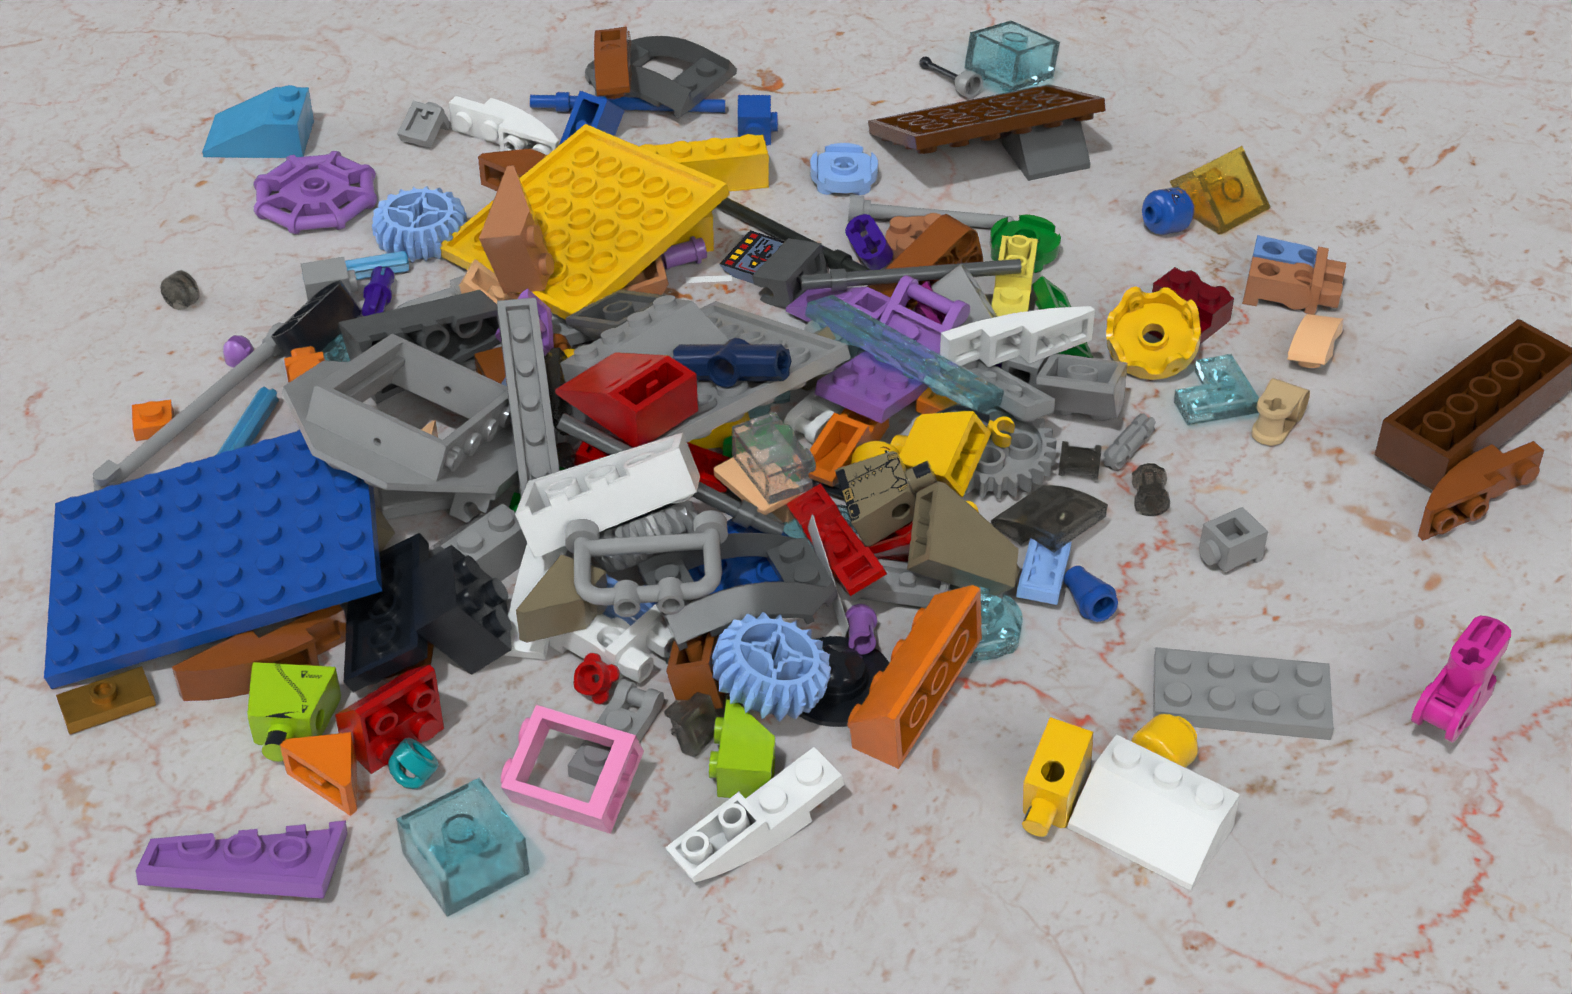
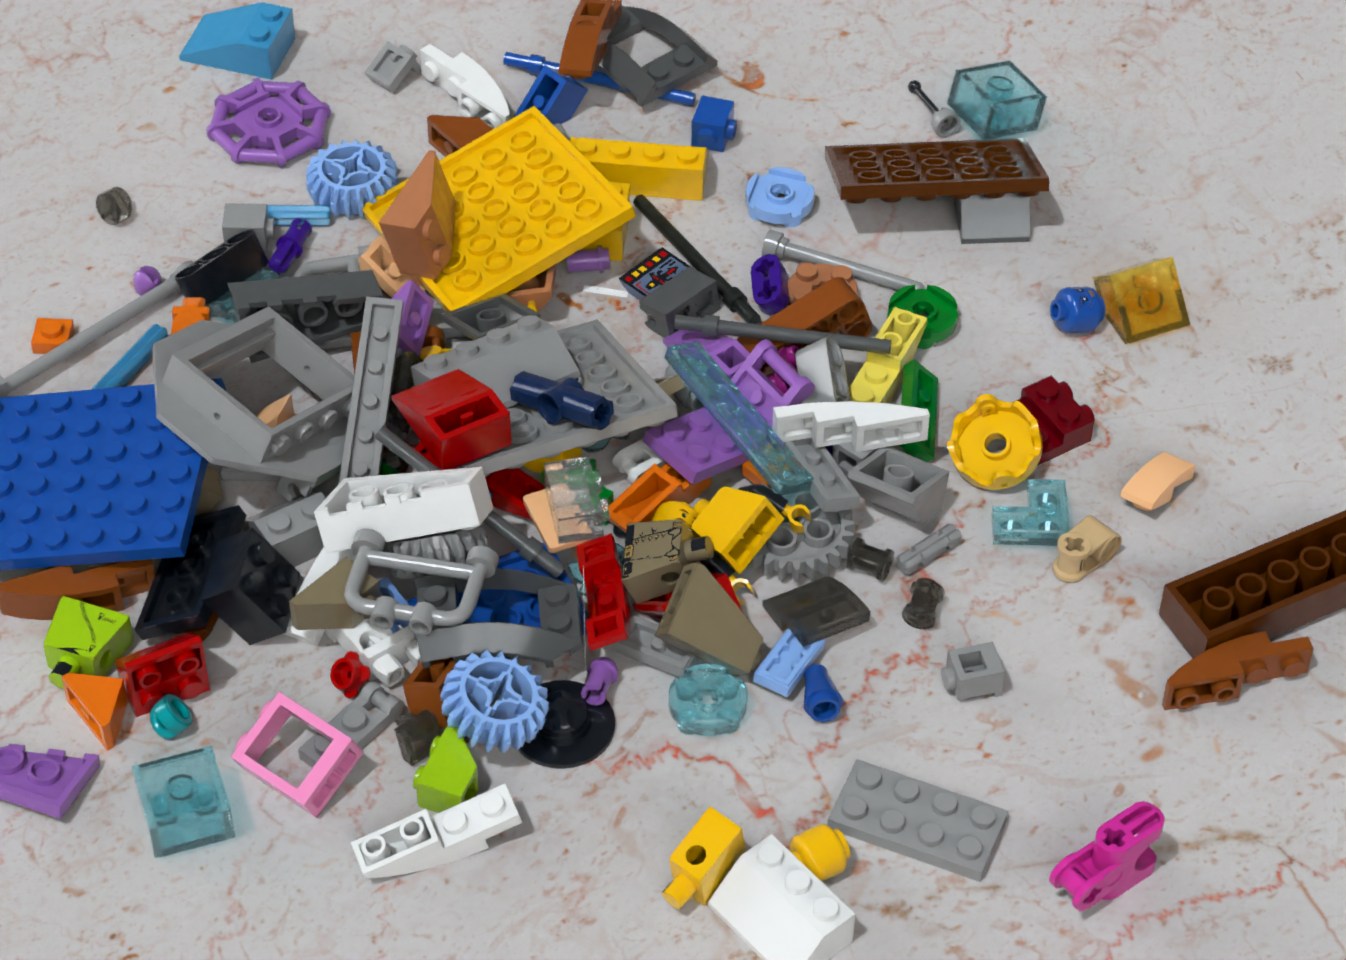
camera: 15 degrees right, 5 degrees up
(918, 676) = (624, 739): orange slope -> none
(1293, 275) = (1168, 407): nougat hips -> none

